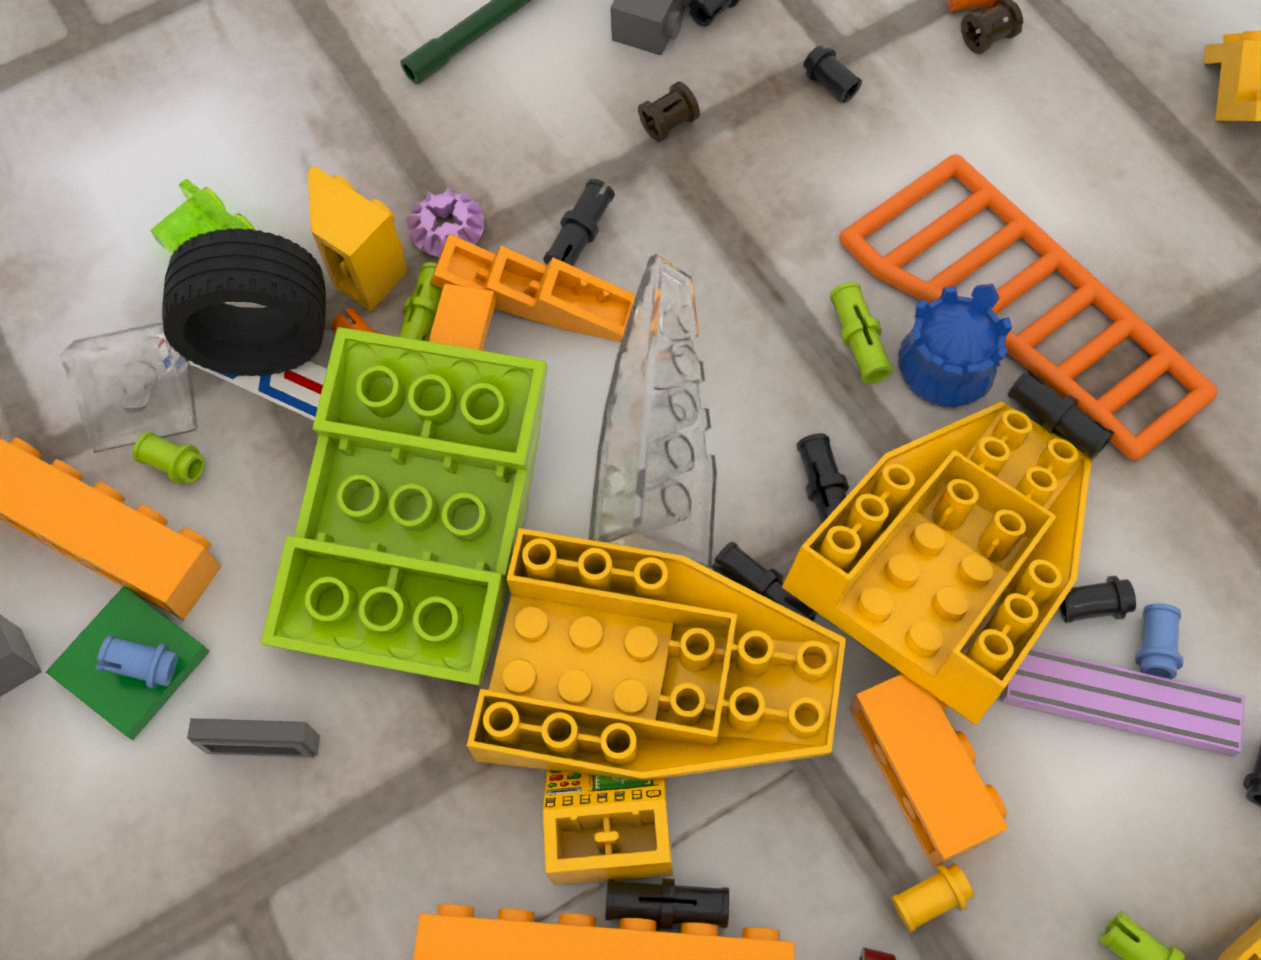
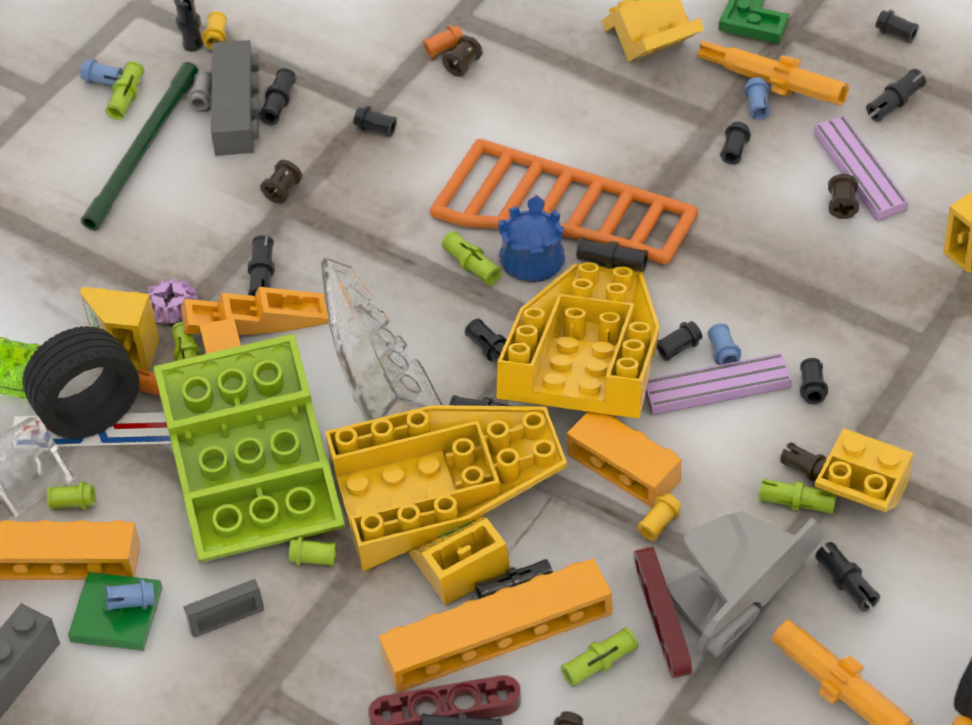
camera: 25 degrees left, 15 degrees down
(418, 702) = (312, 552): none -> lime pin
(1202, 913) = (803, 461): none -> dark brown pin

